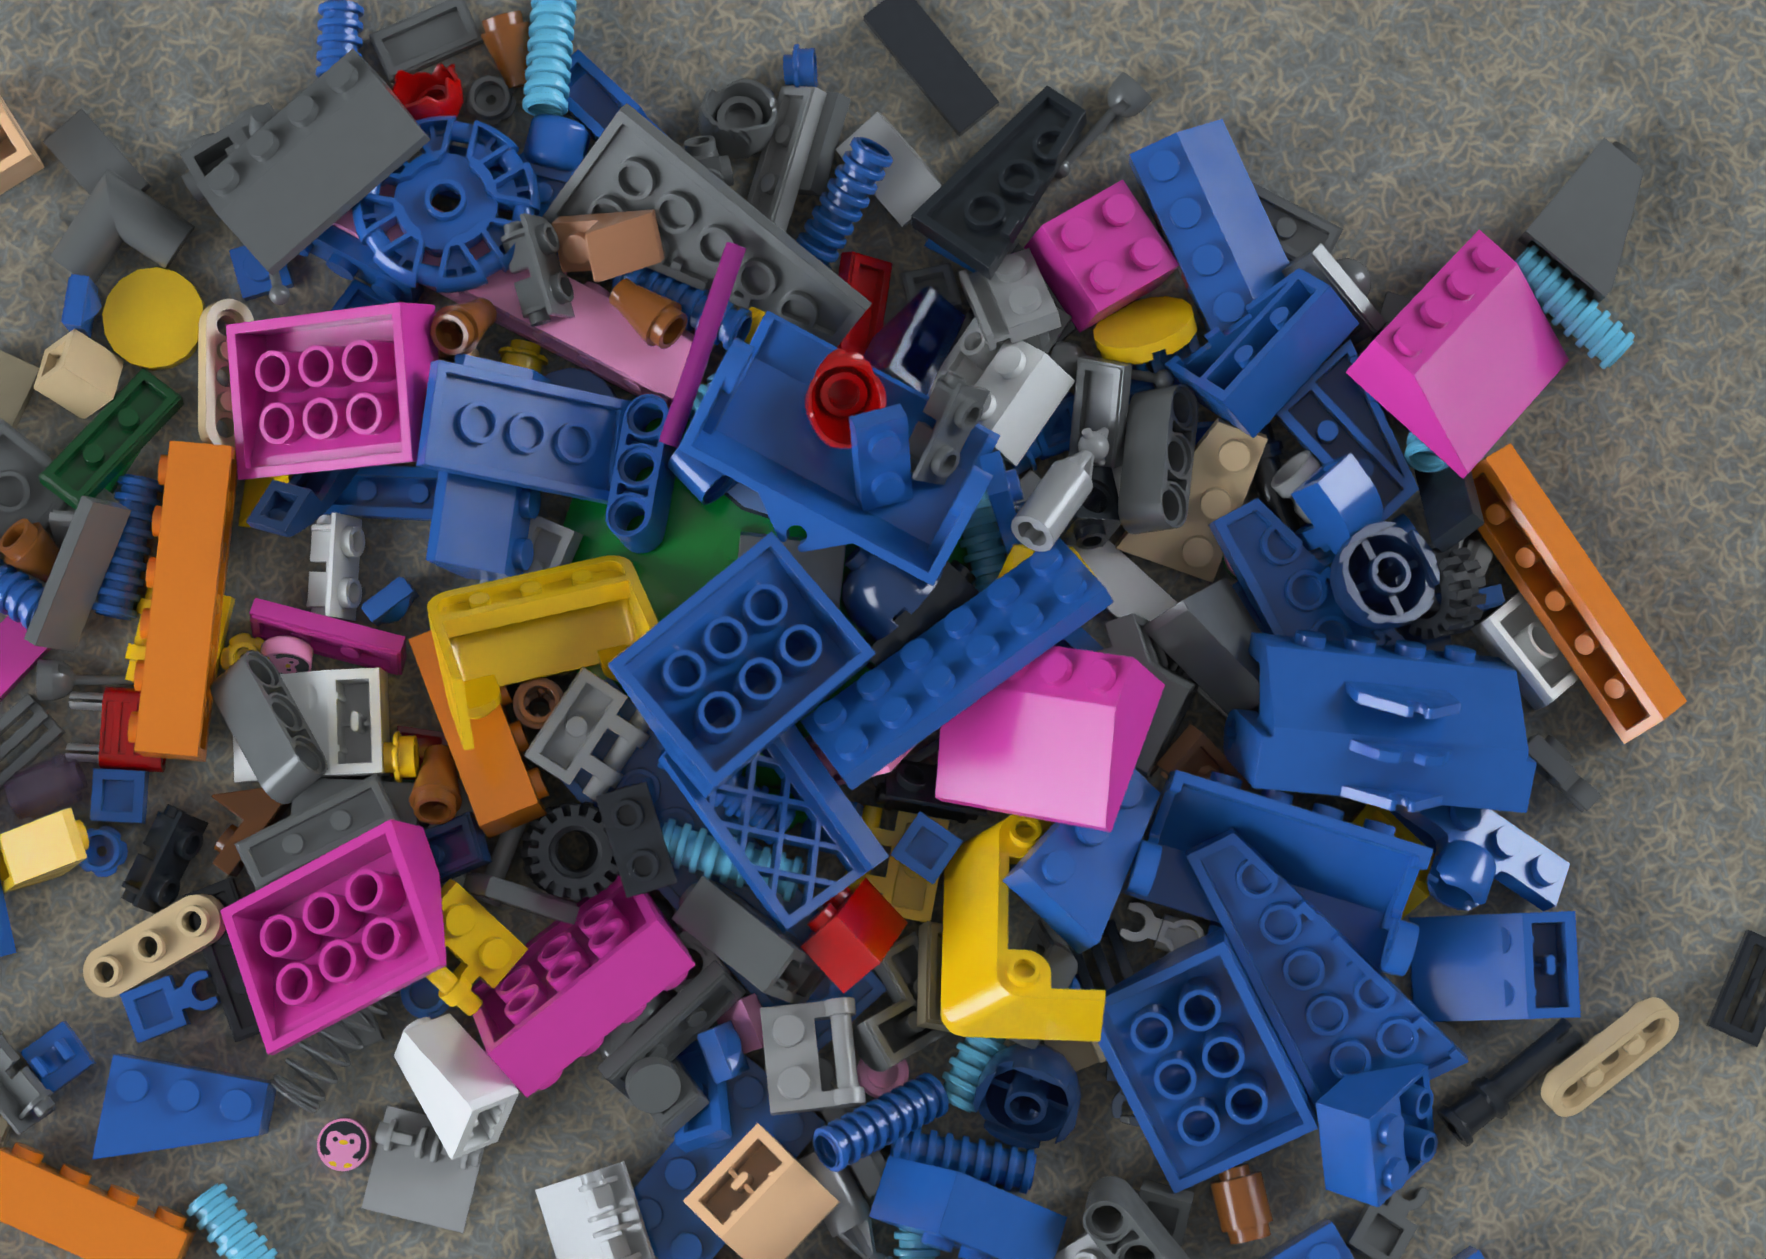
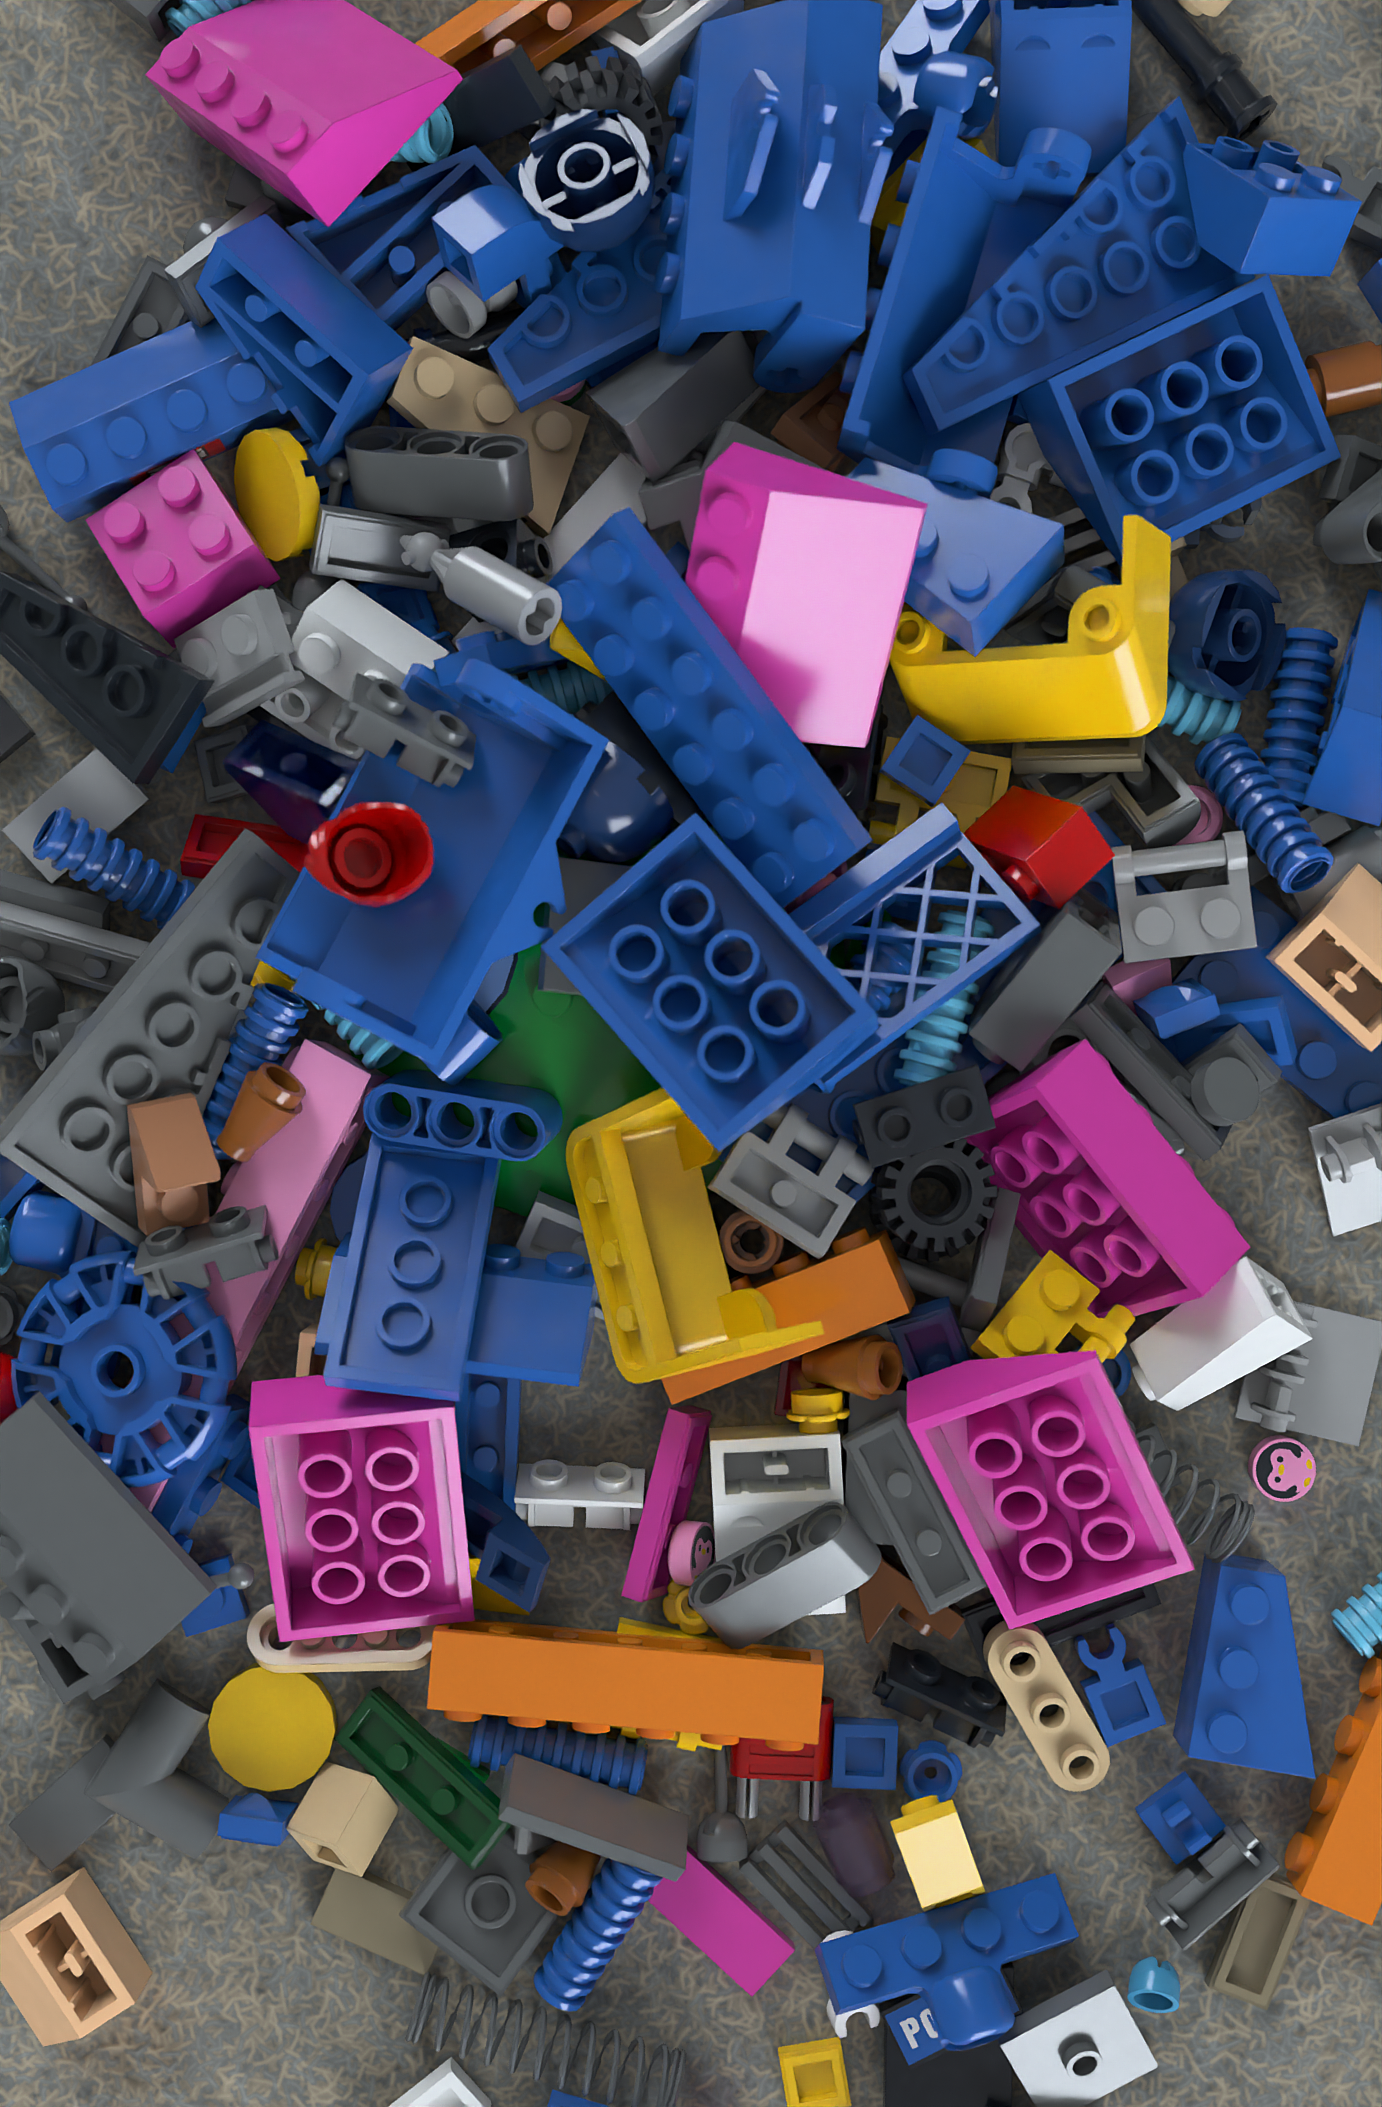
camera: 90 degrees left, 5 degrees up
(390, 602) = (624, 1426): blue tile -> none
(462, 325) = (278, 1346): dark orange cone -> none
(702, 344) = (299, 1040): magenta bar -> none
(881, 457) = (443, 806): blue plate -> none

